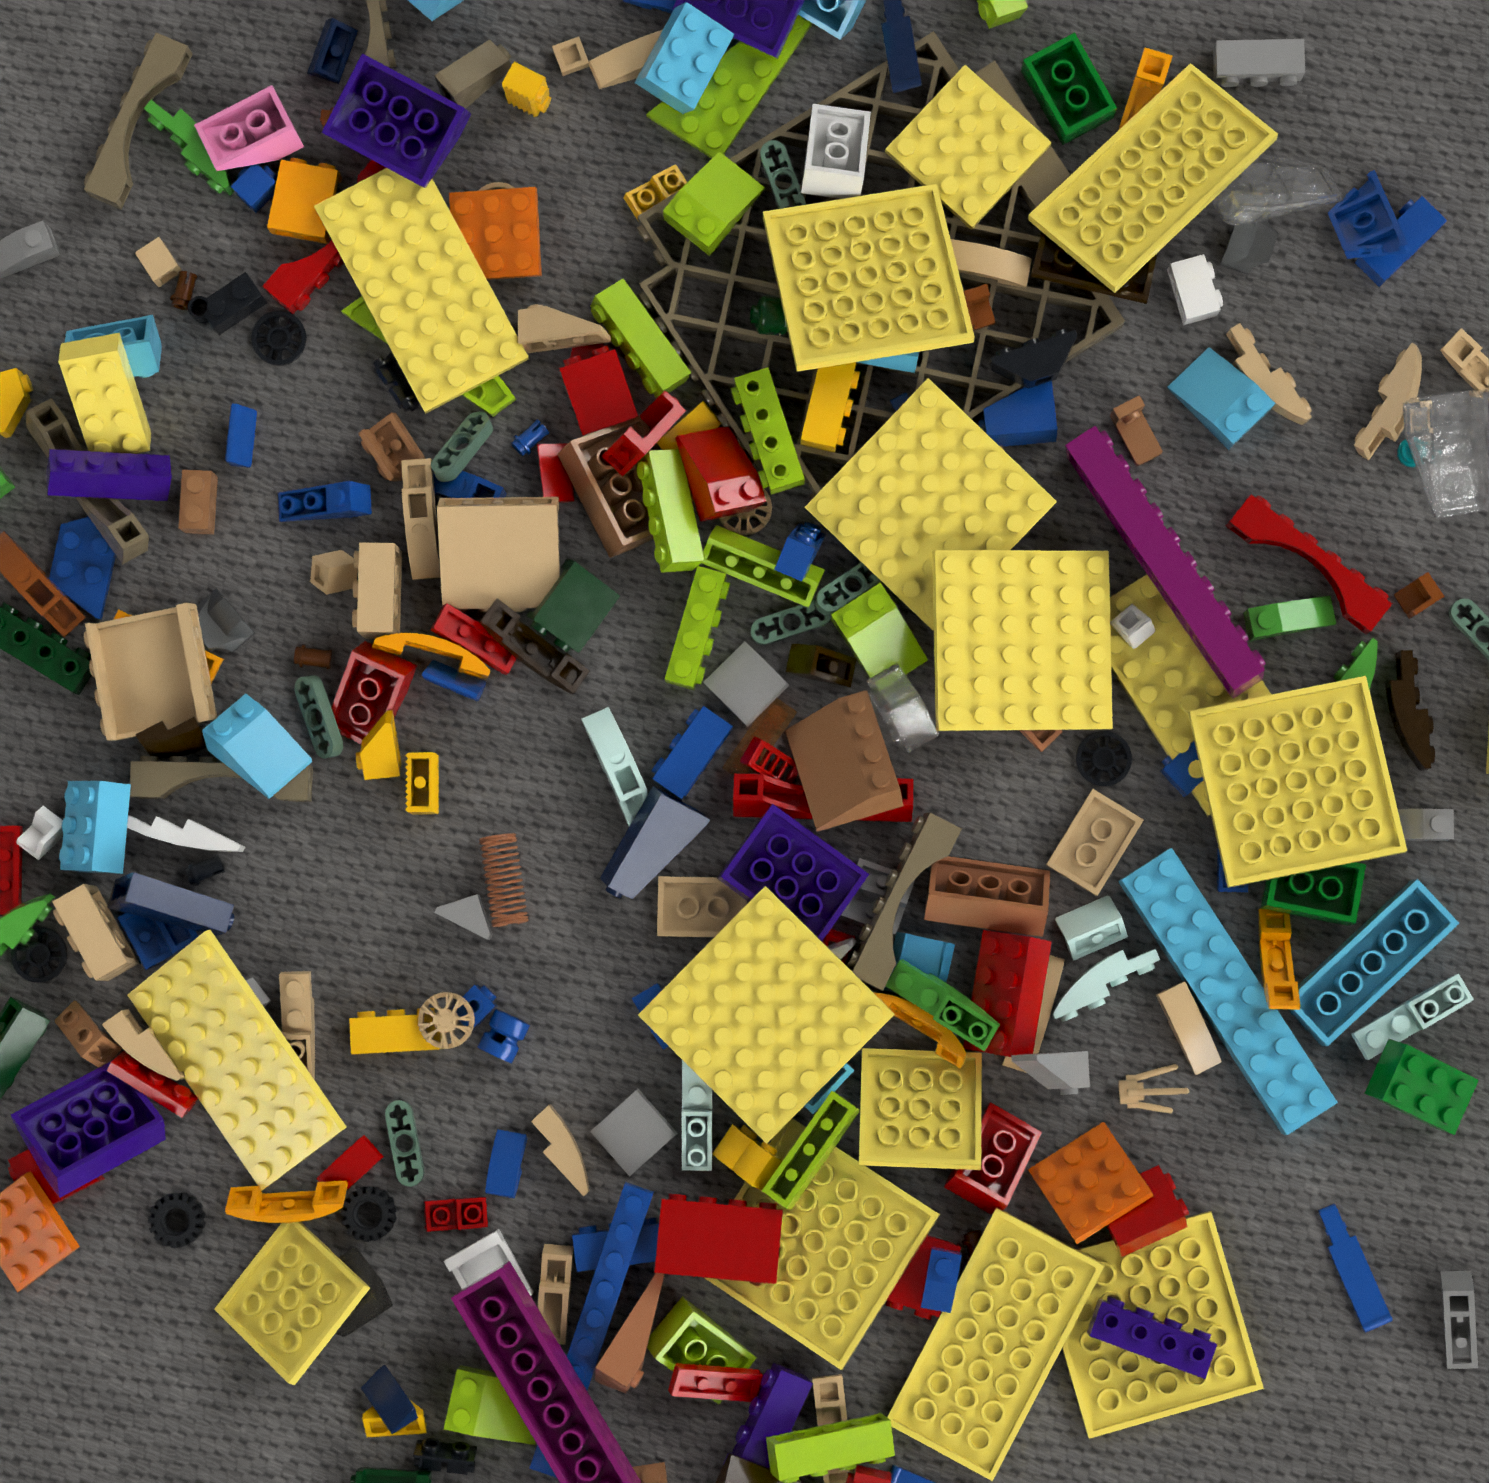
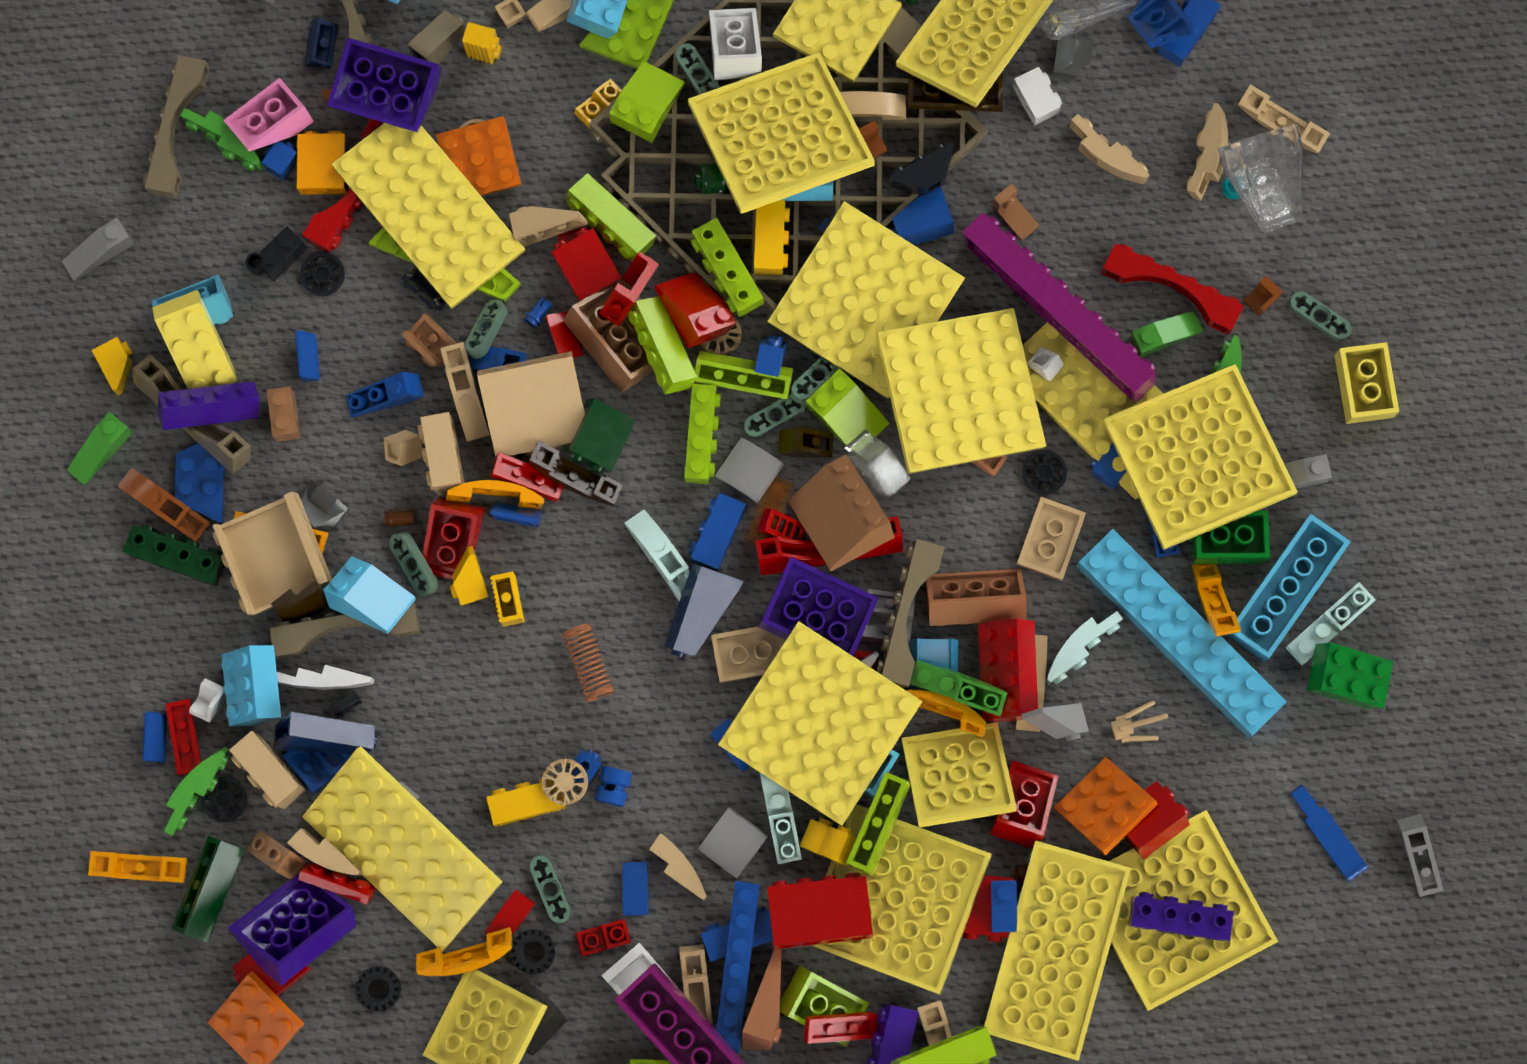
camera: 20 degrees left, 5 degrees down
(158, 262) = (215, 233): tan panel -> none
(183, 291) = (239, 252): reddish brown pin -> none
(298, 1015) = (443, 800): tan slope -> none
(468, 914) = (565, 696): light grey slope -> none
(696, 420) = (668, 271): yellow slope -> none
(1091, 927) = (1063, 606): light aqua panel -> none
(1189, 1027) = (1157, 668): tan slope -> none
(1221, 397) = (1076, 174): medium azure slope -> none
(1410, 723) = (1278, 395): dark brown slope -> none

